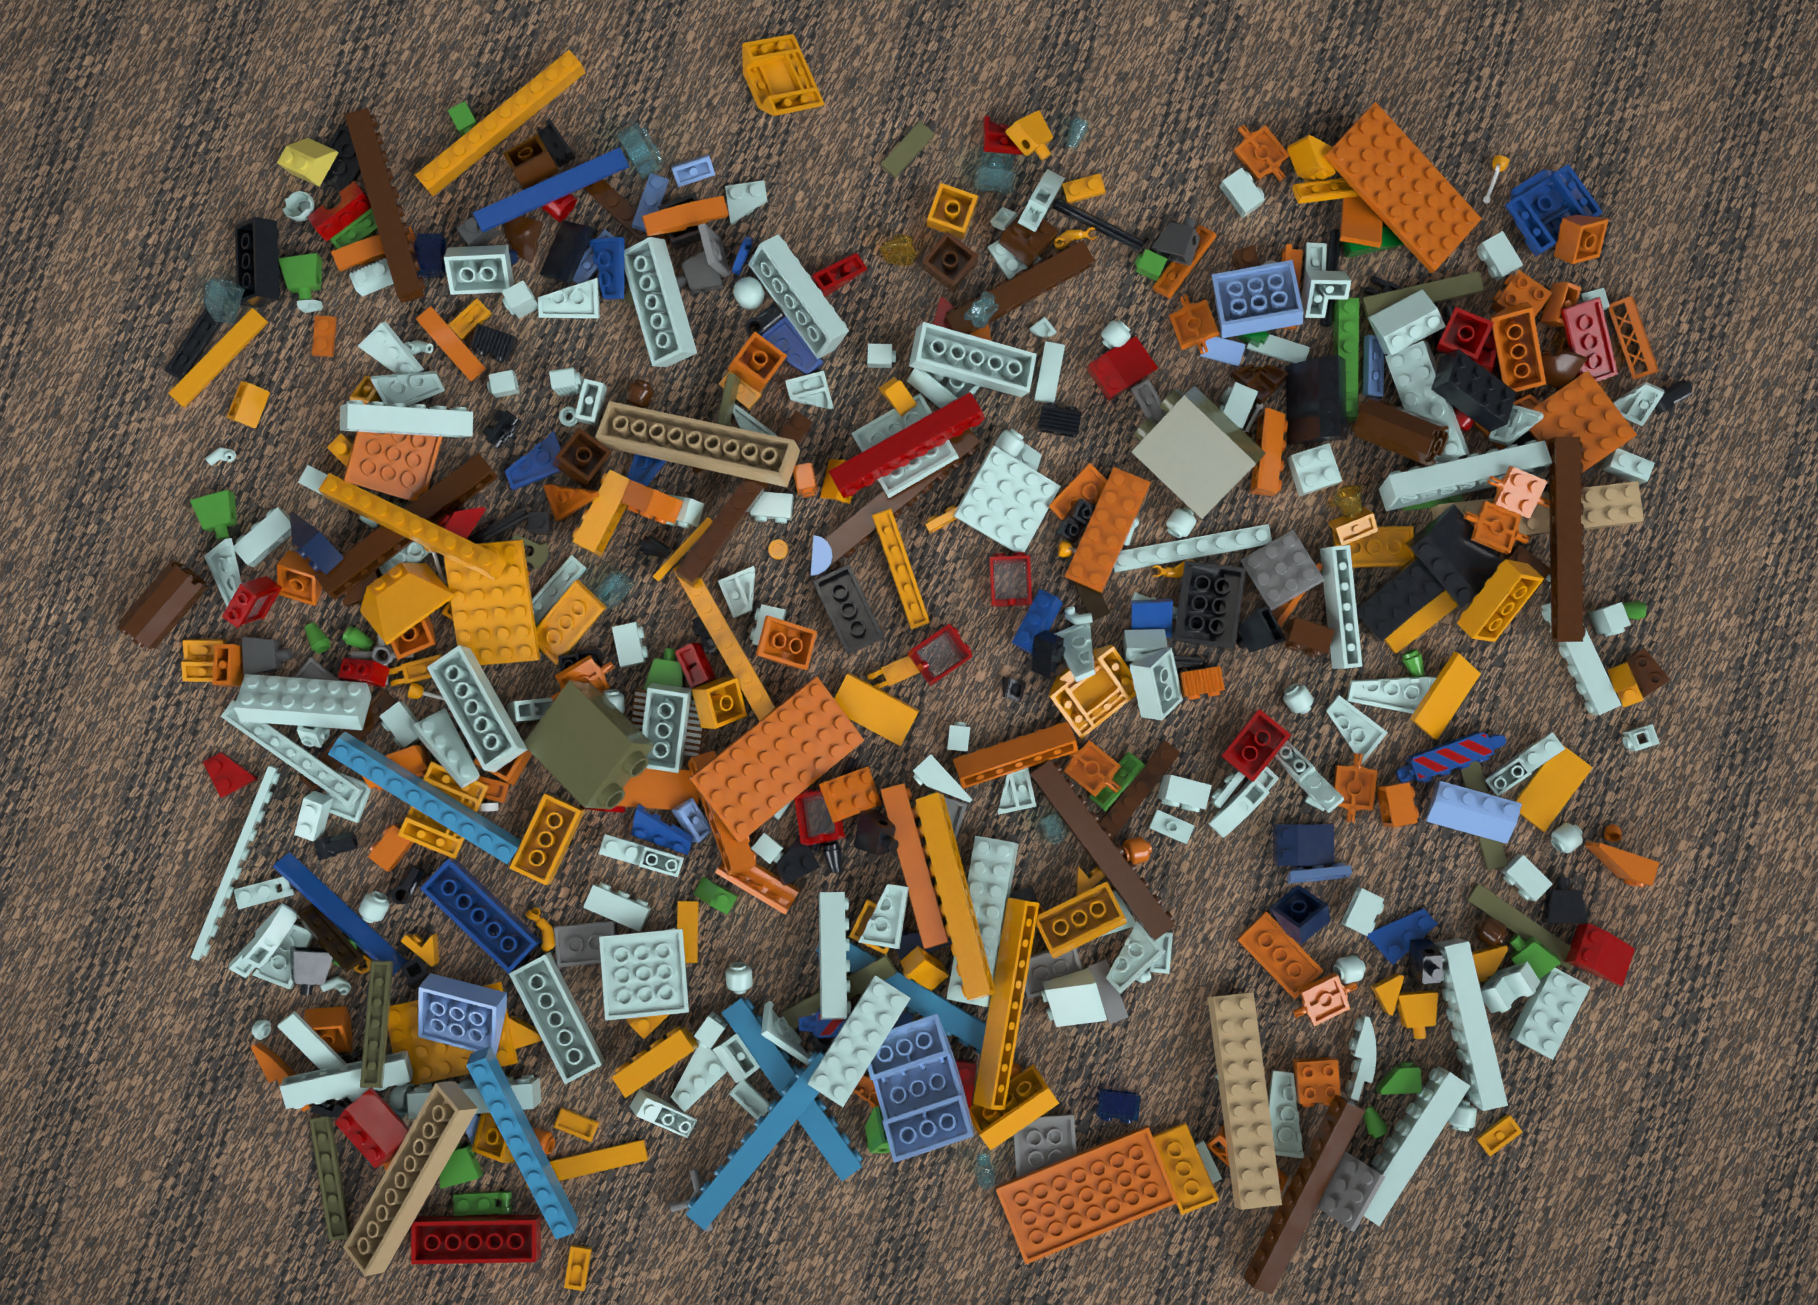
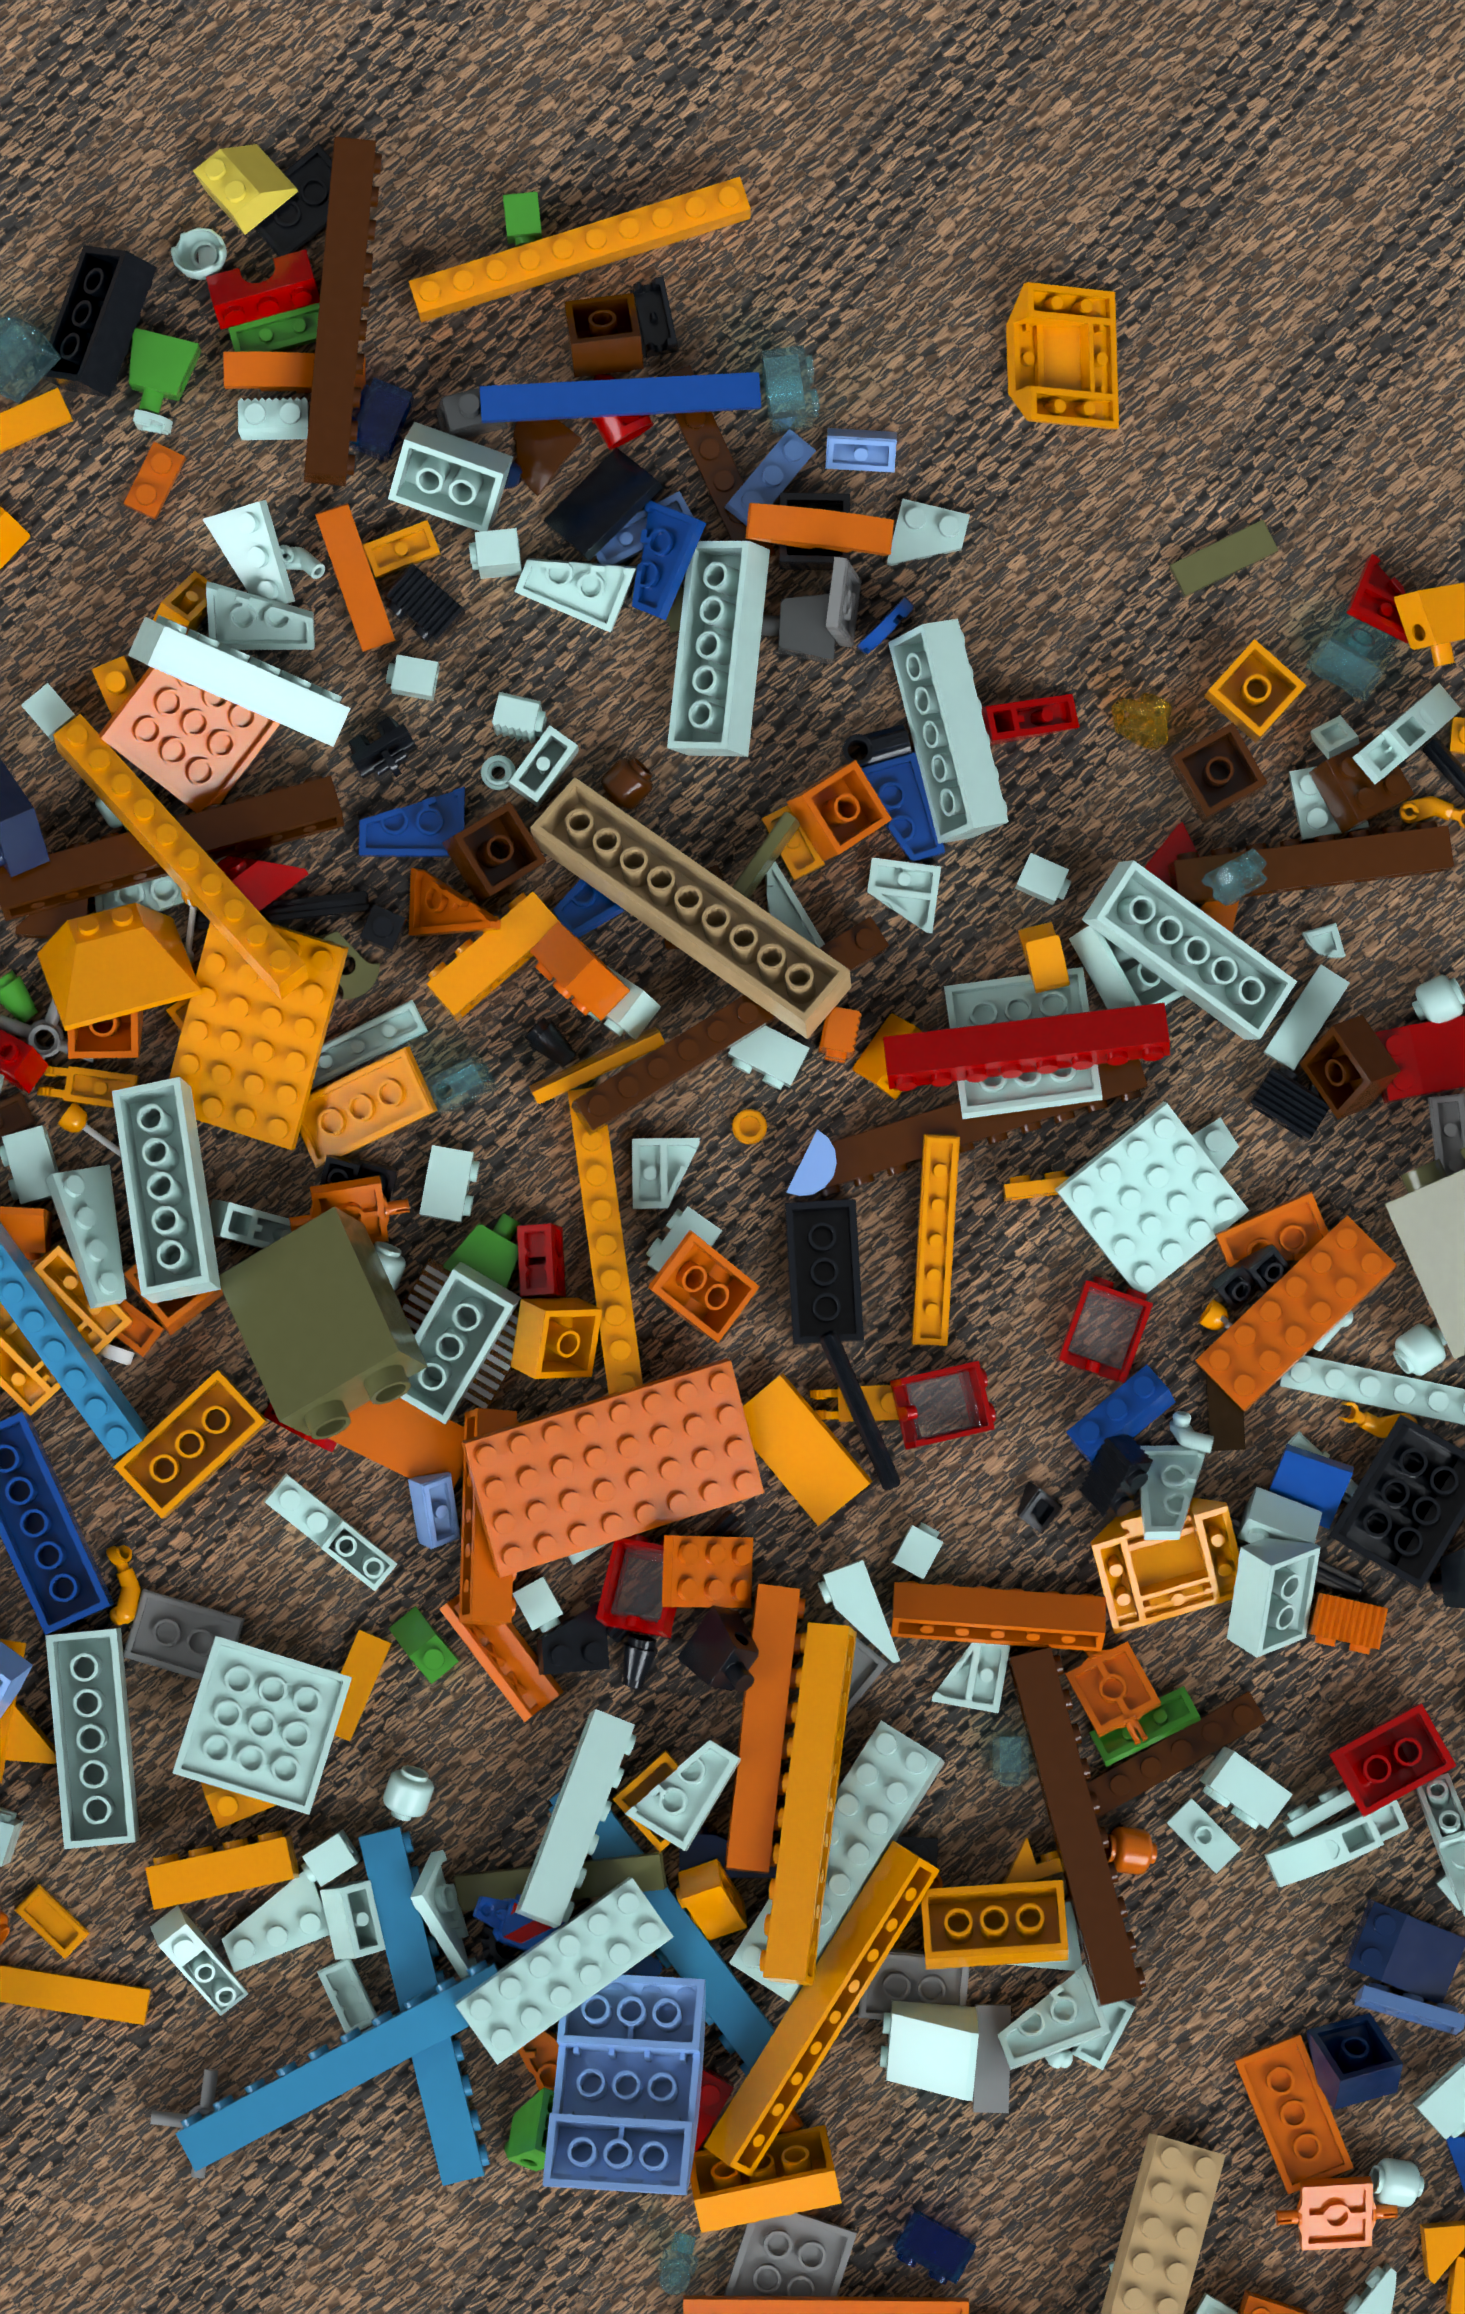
camera: 15 degrees right, 0 degrees up
(617, 906) = (260, 1599): light aqua brick -> none
(654, 830) = (371, 1504): blue wing -> none
(708, 643) = (576, 1235): black wing -> none
(749, 293) = (870, 688): light aqua hair -> none
(897, 675) = (859, 1410): none -> black axle
(1010, 442) = (1196, 1106): light aqua head -> none
(1083, 387) = (1350, 1067): none -> reddish brown brick

